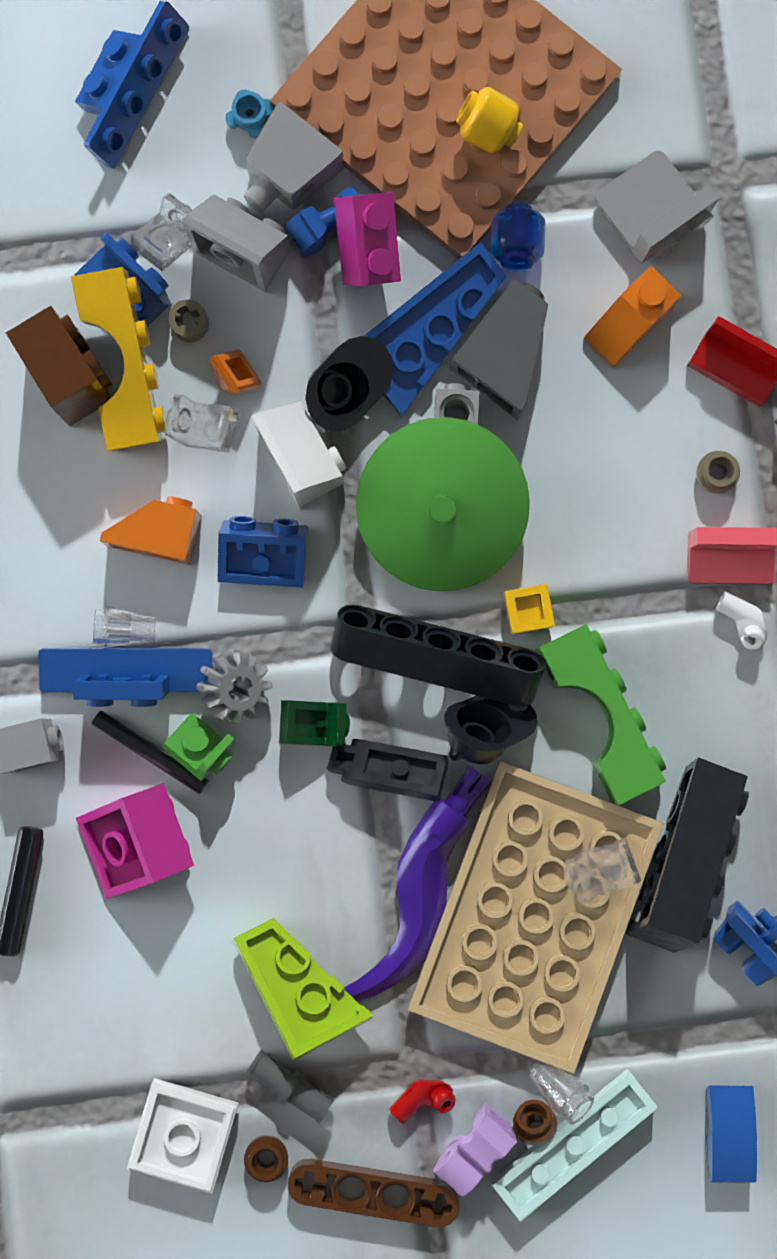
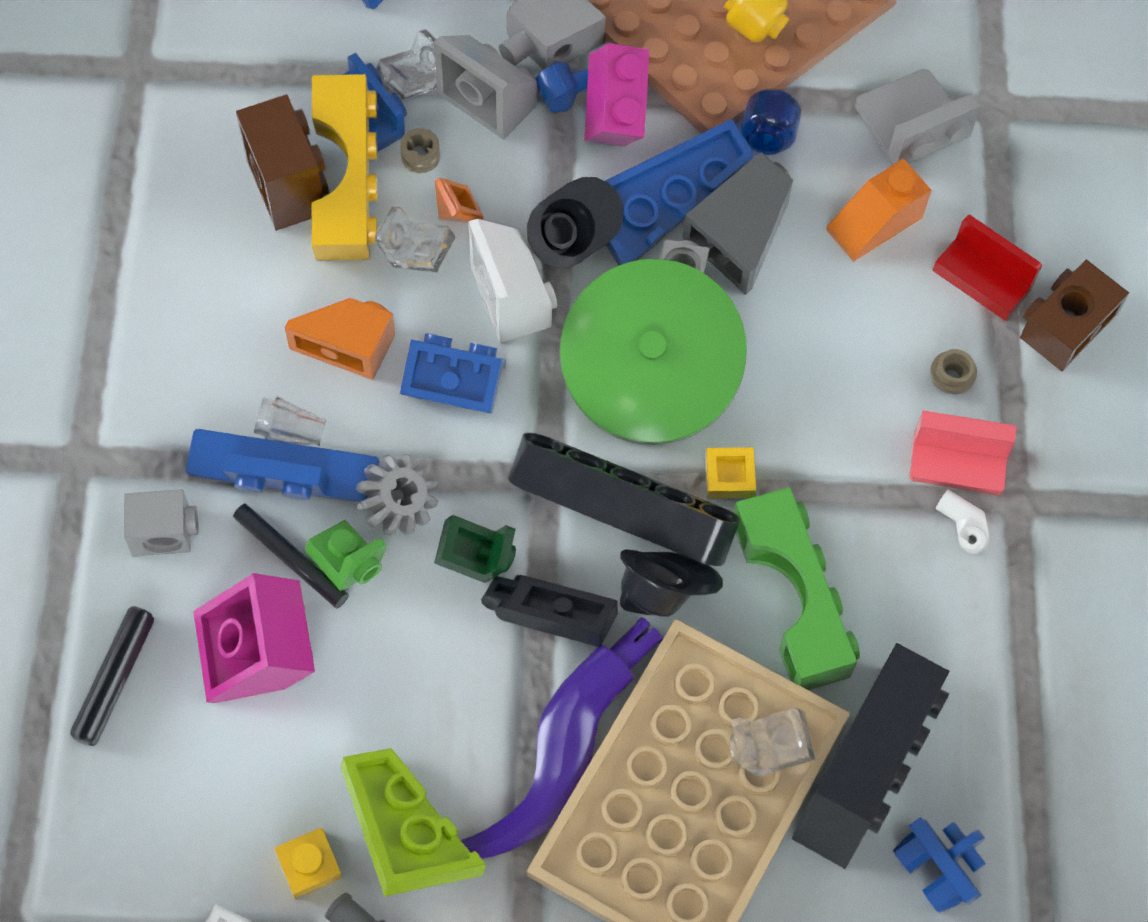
camera: 10 degrees right, 20 degrees down
(222, 1027) = (308, 862): none -> yellow plate

